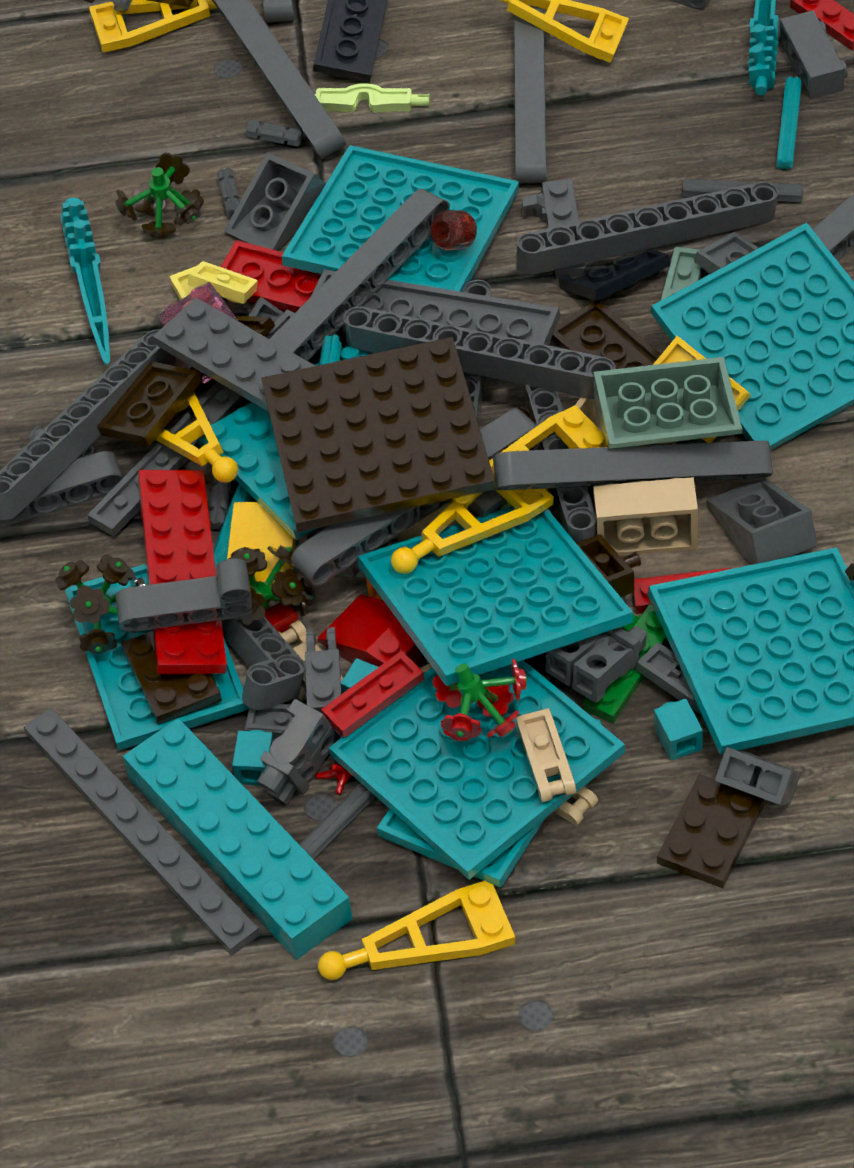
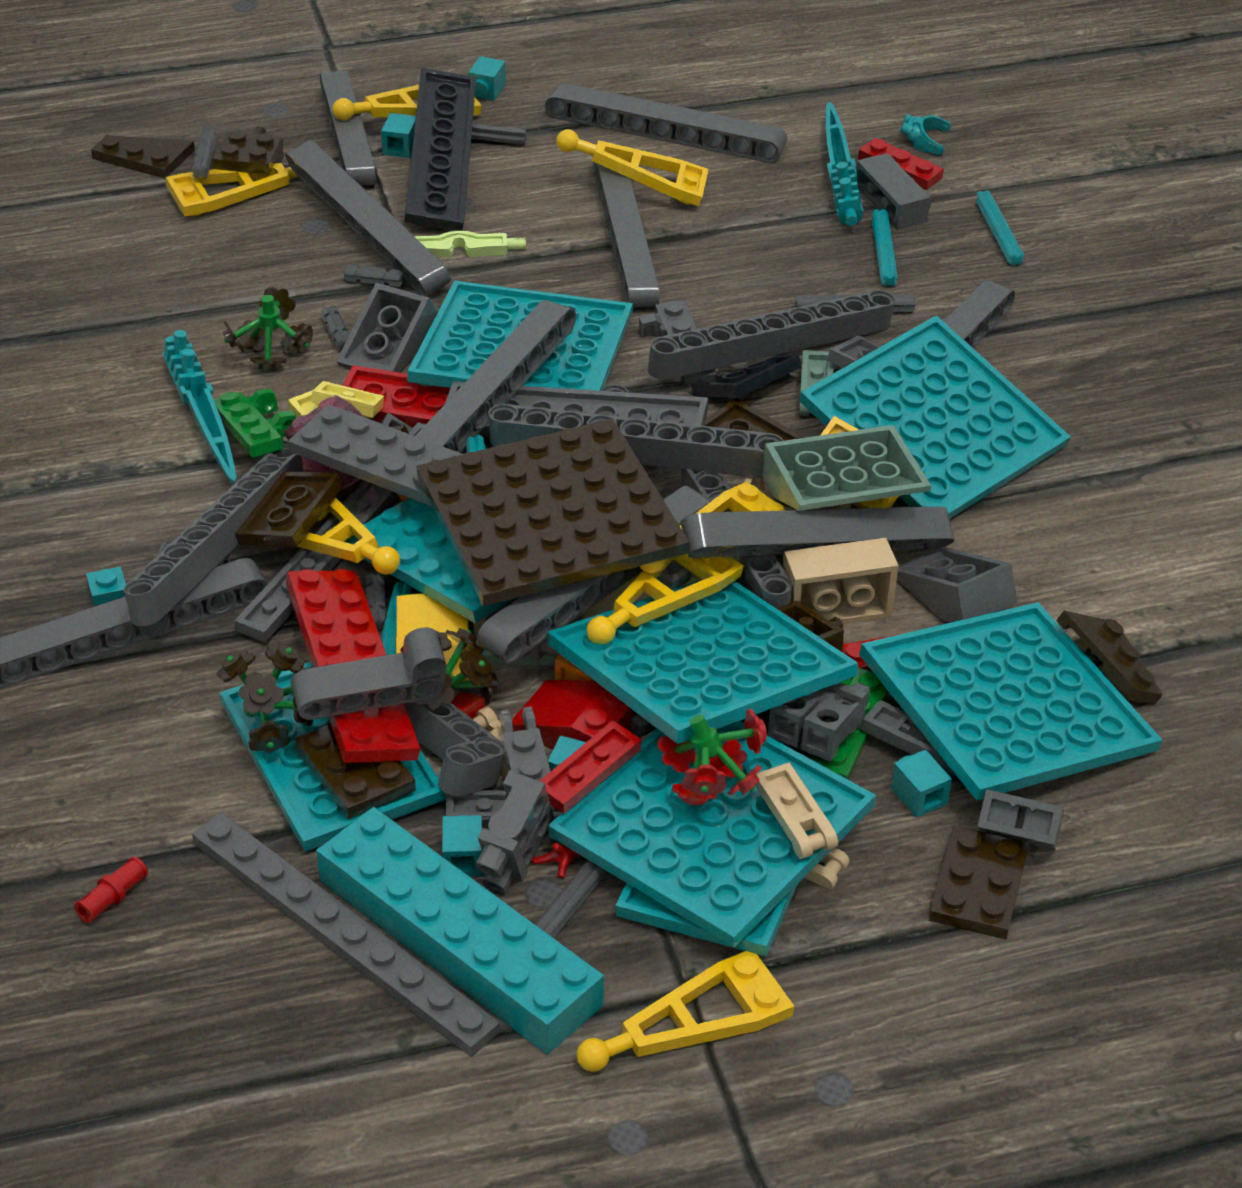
camera: 15 degrees left, 10 degrees down
(124, 296) = (245, 420): none -> green hinge
(453, 230) = (583, 338): clear red head -> none

